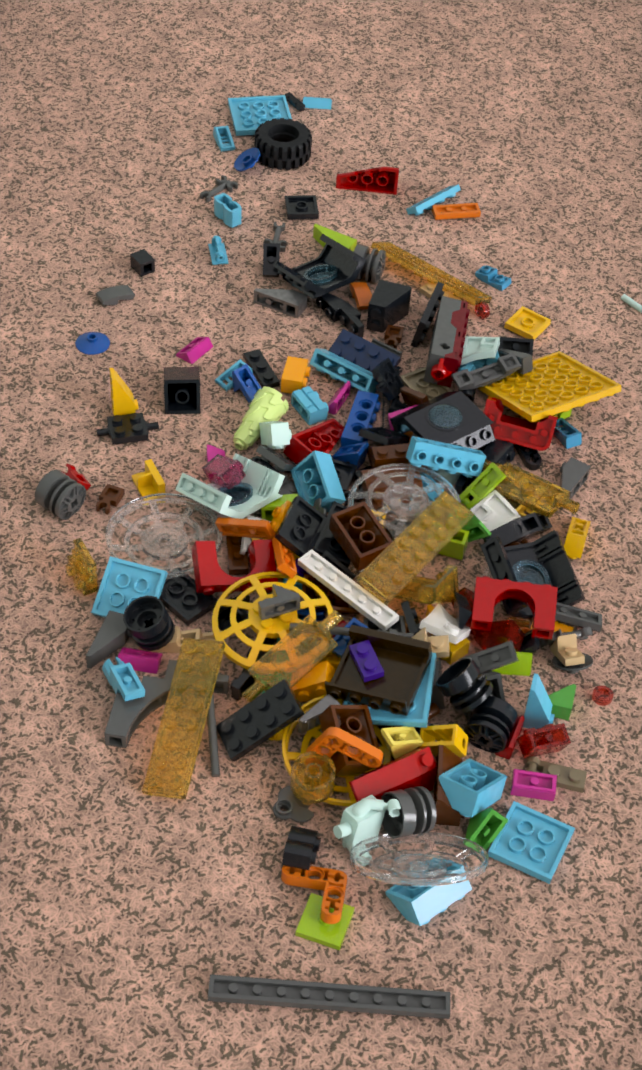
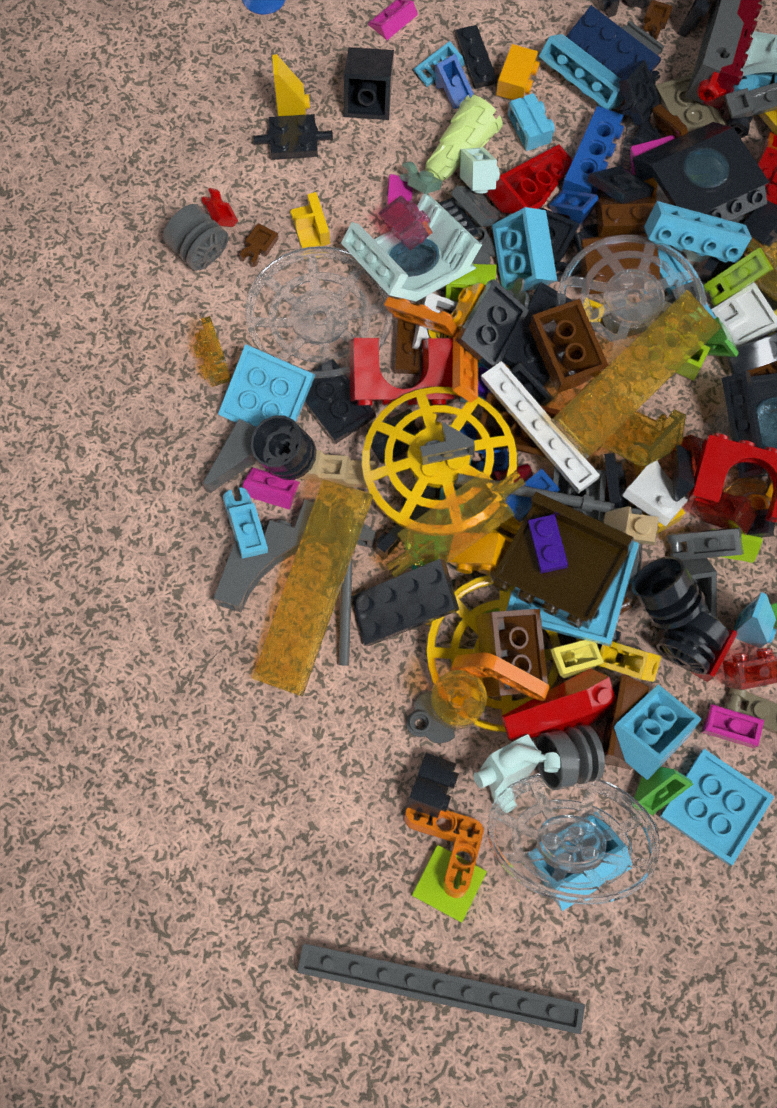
camera: 10 degrees right, 25 degrees up
(233, 445) = (423, 181): none -> sand green plate
(311, 718) = (486, 602): flat silver slope -> none
(339, 398) = (570, 113): dark pink slope -> none

